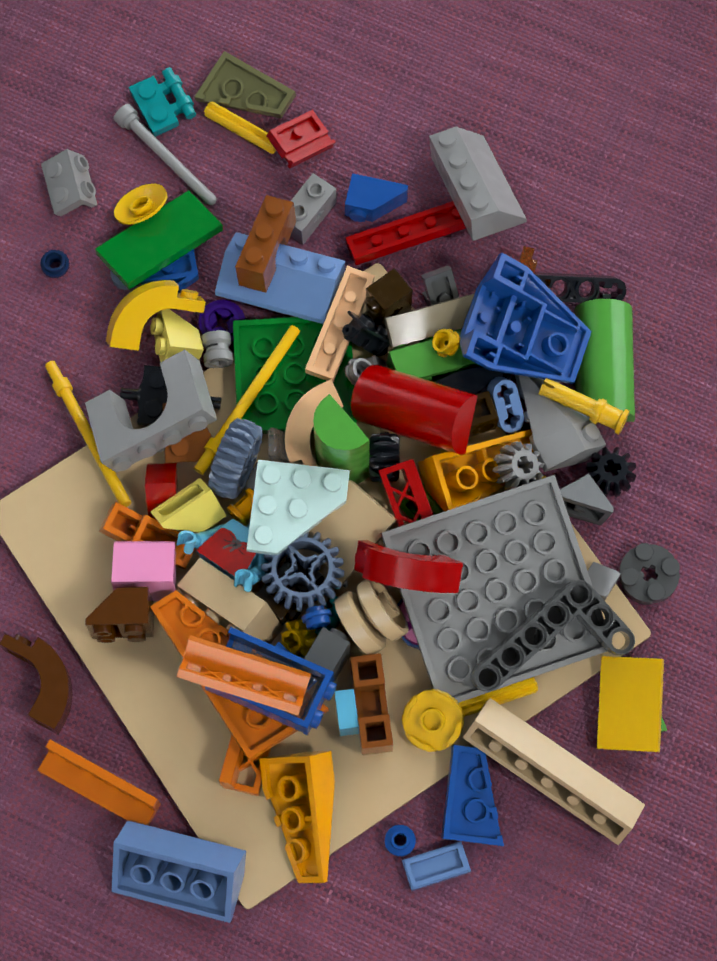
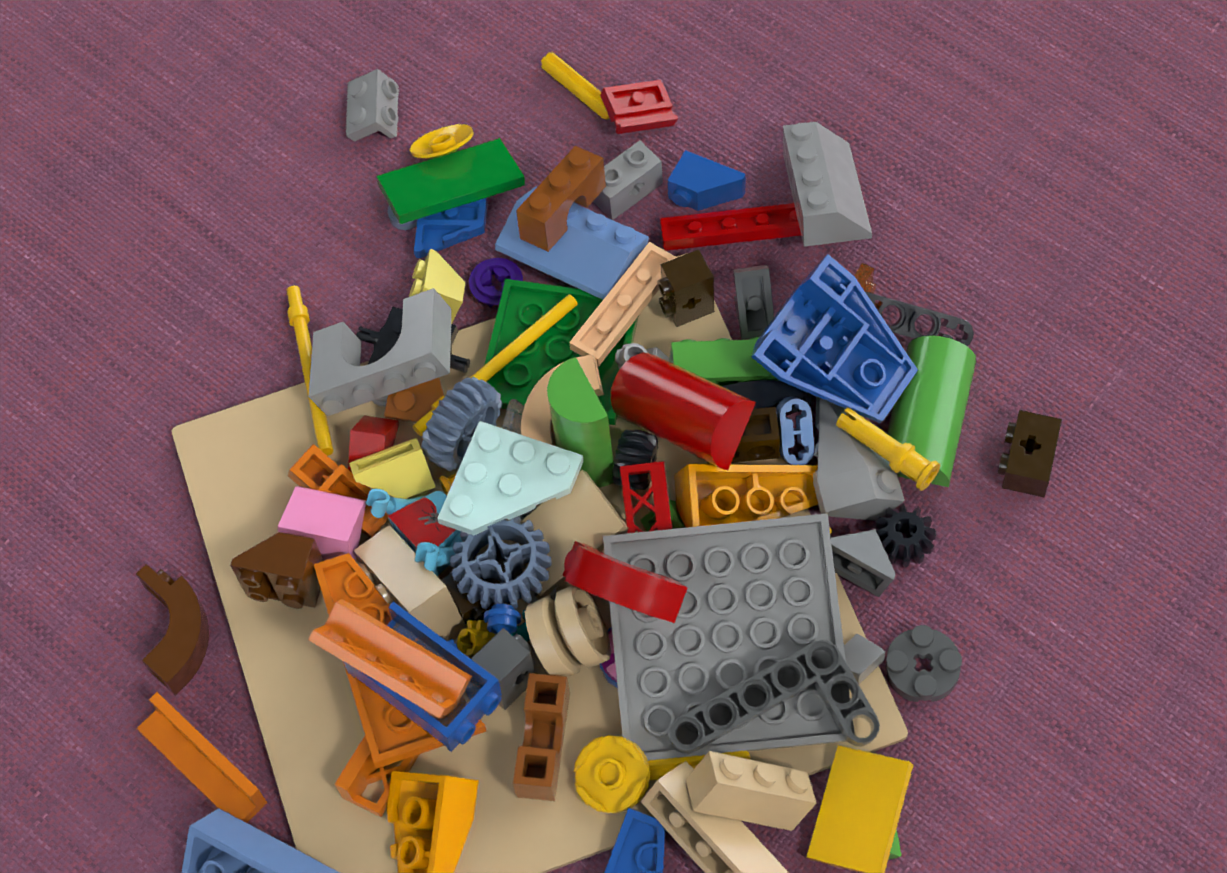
camera: 20 degrees right, 10 degrees down
(54, 256) = (330, 179): dark blue plate -> none
(127, 118) = (456, 54): light grey piece -> none
(142, 303) = (399, 245): yellow arch -> none
(155, 108) = (489, 49): teal plate -> none
(217, 349) = (479, 306): light grey wheel -> none
(244, 88) = (593, 46): olive wing -> none
(346, 712) = (508, 738): medium azure piece -> none
(367, 335) = (647, 311): black hinge -> none
(426, 321) = (723, 319): dark tan slope -> none
(446, 342) = (739, 343): yellow plate -> none
(517, 456) = (789, 496): light grey gear -> none
(546, 710) = (750, 791): none -> tan brick
(699, 366) = (1030, 472): none -> dark brown brick

